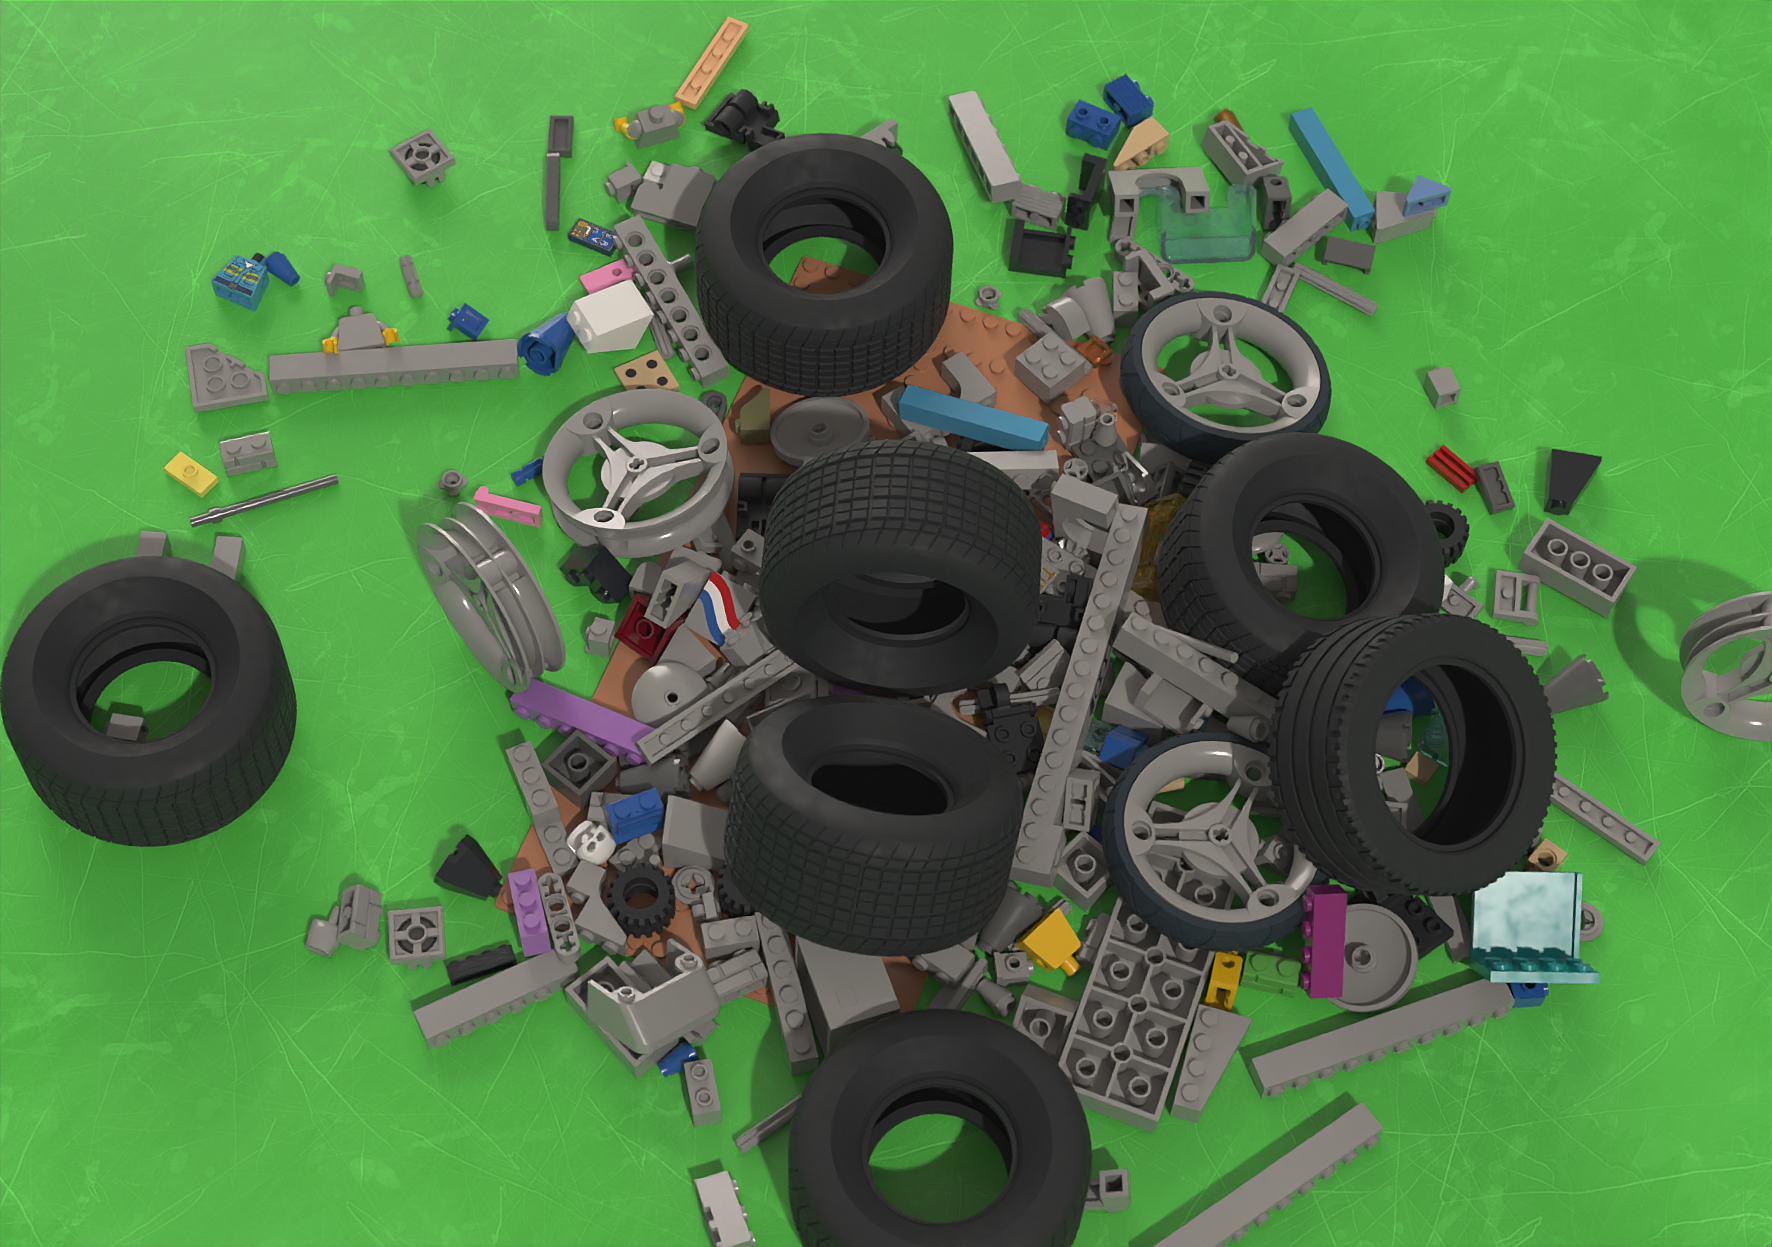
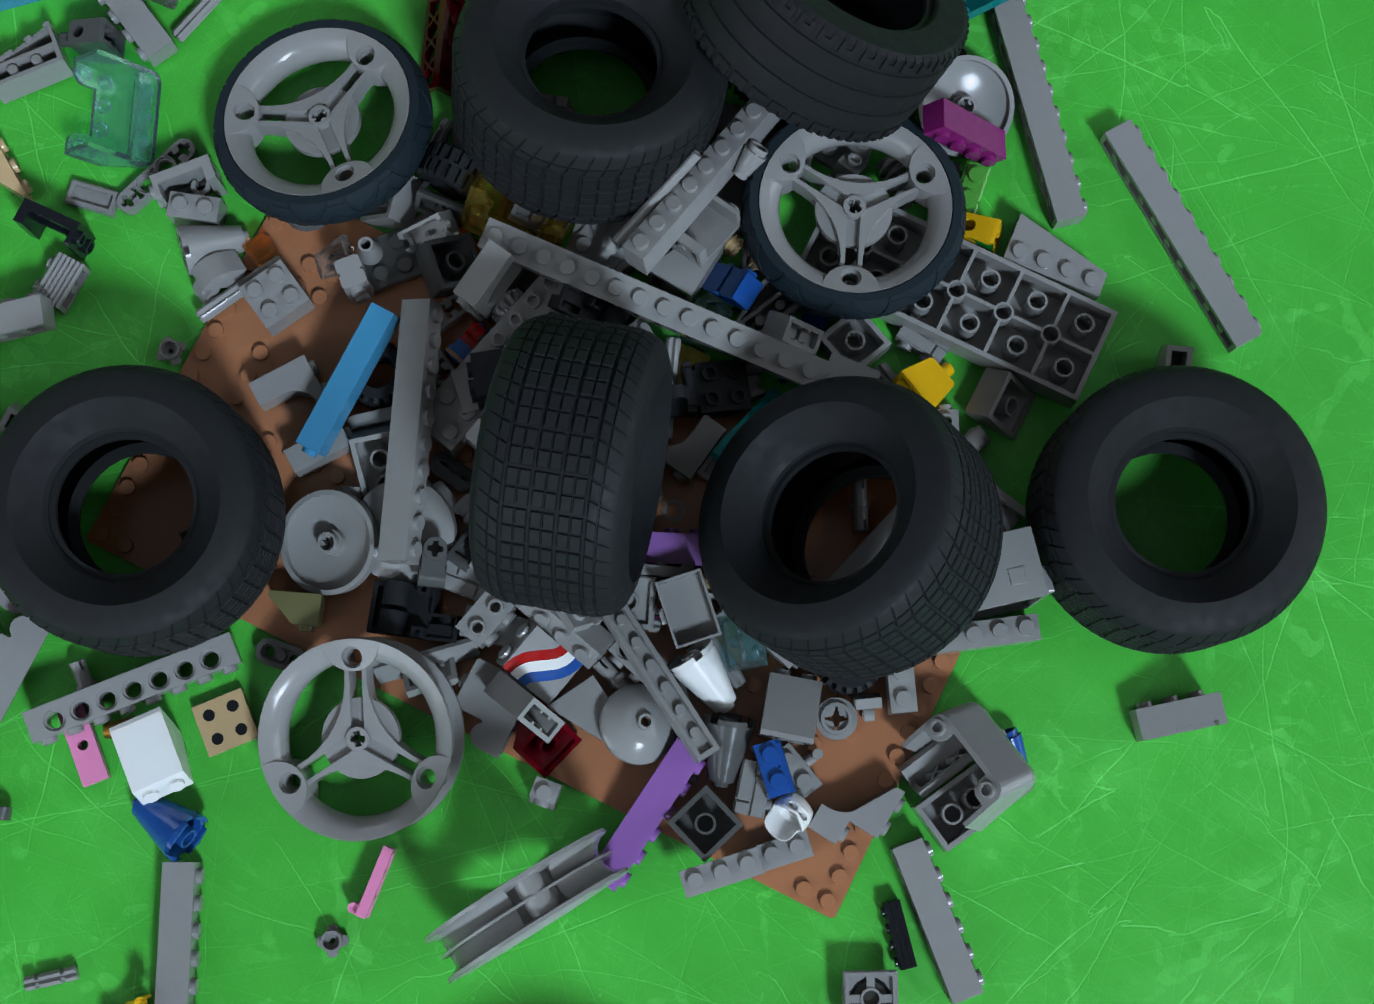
camera: 85 degrees left, 20 degrees up
(467, 321) = (124, 916): blue bracket -> none
(469, 871) = (803, 943): black cone -> none
(529, 471) = (326, 853): blue axle -> none
(529, 912) = (860, 883): medium lavender brick -> none
(559, 917) = (865, 855): light grey beam -> none
(593, 237) = (27, 767): tile -> none
(600, 571) = (472, 791): black brick -> none
(641, 881) = (875, 759): black tyre -> none
(660, 335) = (170, 703): light grey axle -> none
(702, 1092) = (1051, 726): light grey brick -> none
(738, 975) = (939, 684): light grey brick -> none
(767, 1126) = (1074, 654): light grey axle -> none
(1041, 251) = (118, 288): black panel -> none
(1077, 467) = (405, 285): light grey wheel -> none
(1127, 186) = (53, 126): light grey arch -> none
(1281, 287) = (206, 55): light grey plate -> none

